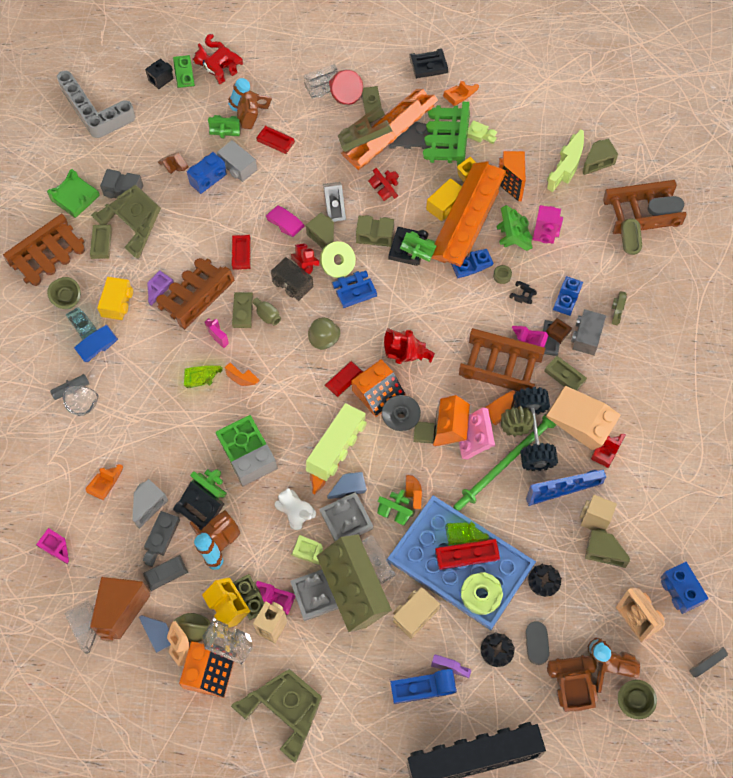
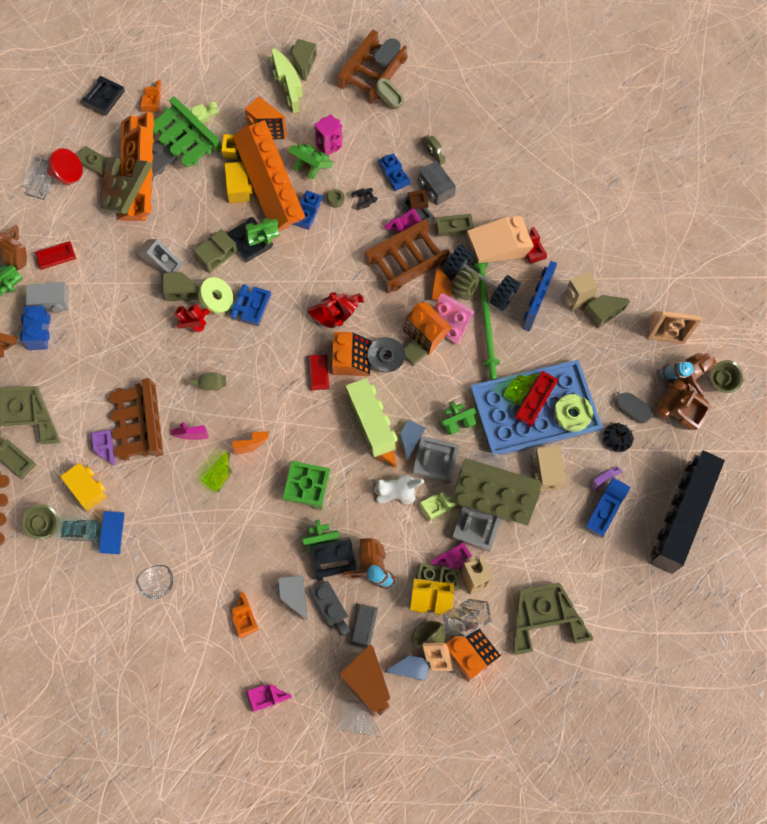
camera: 55 degrees left, 5 degrees up
(58, 391) = (131, 586): dark grey axle -> none
(241, 252) = (135, 359): red tile -> none
(242, 310) = (189, 398): olive plate -> none
(254, 465) = (335, 490): light grey brick -> none
(285, 220) = (140, 305): dark pink slope -> none
(292, 278) = (198, 340): clear smoke brick -> none
(323, 333) = (267, 356): olive helmet -> none
(378, 179) = (188, 212): red hips -> none
(414, 490) = (456, 394): orange slope -> none
(549, 588) = (592, 373): black gear -> none
(683, 588) = (673, 285): blue brick -> none
(708, 662) = (733, 314): dark grey tile -> none

